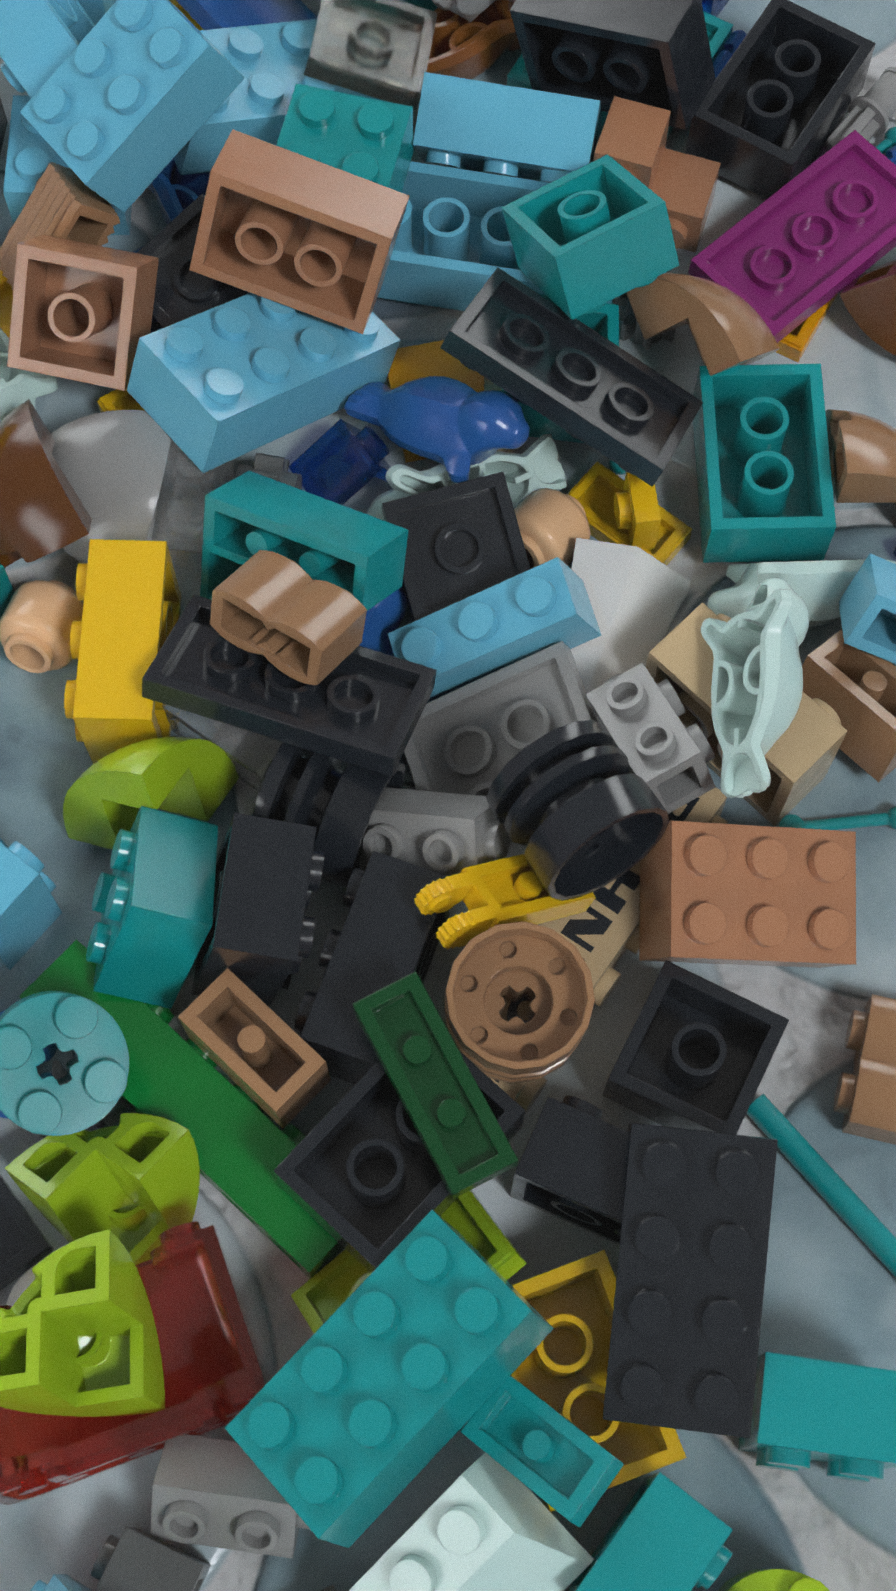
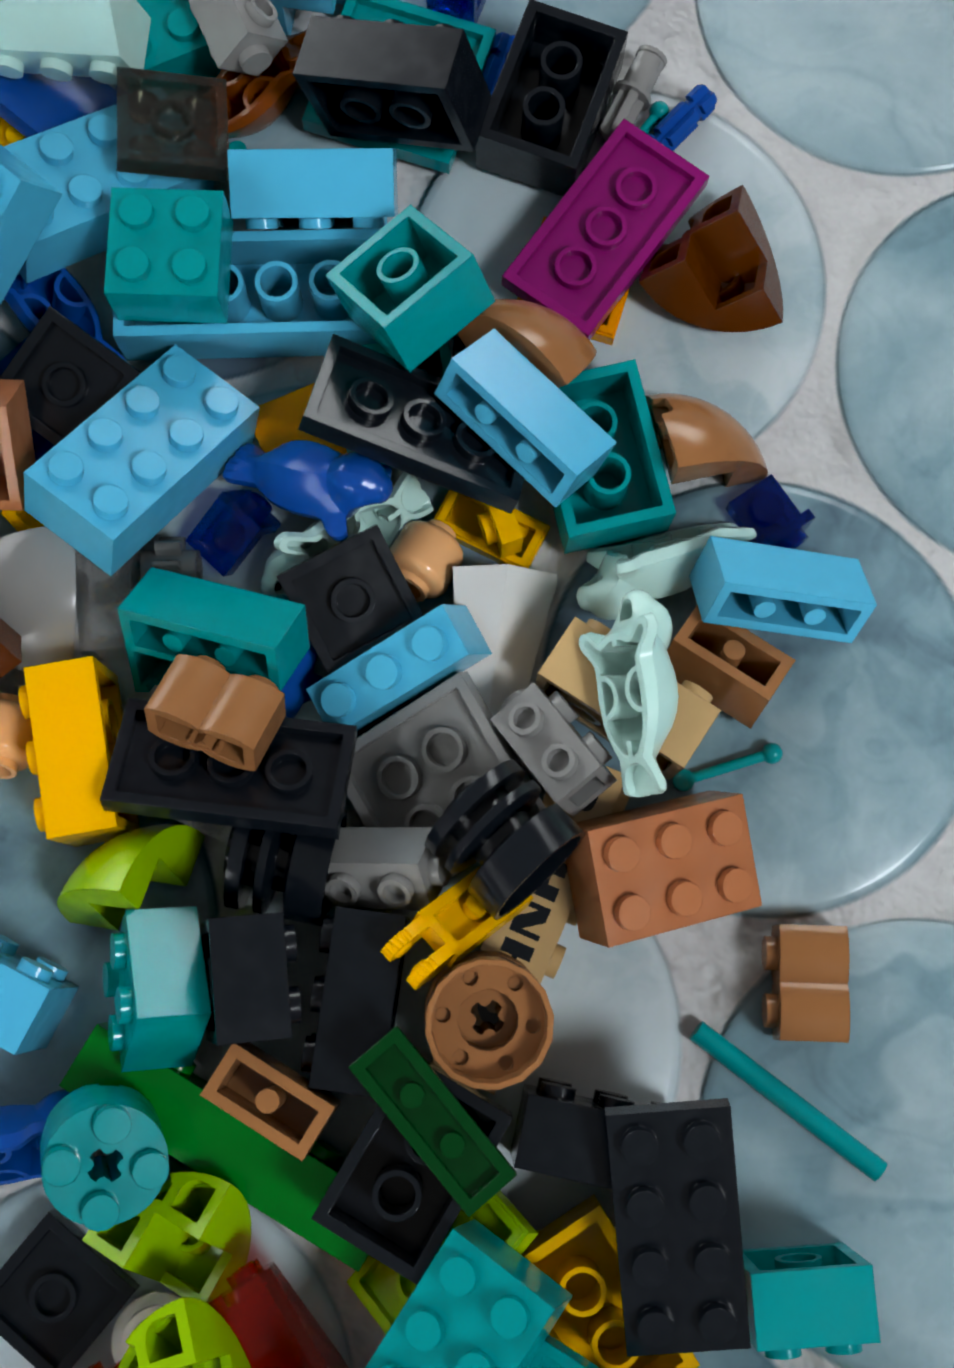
camera: 15 degrees left, 10 degrees up
(297, 231) = (143, 337): nougat brick -> none
(687, 183) = (460, 202): nougat brick -> none
(687, 388) = (524, 417): none -> medium azure brick
(694, 1054) = (643, 1013): black brick -> none

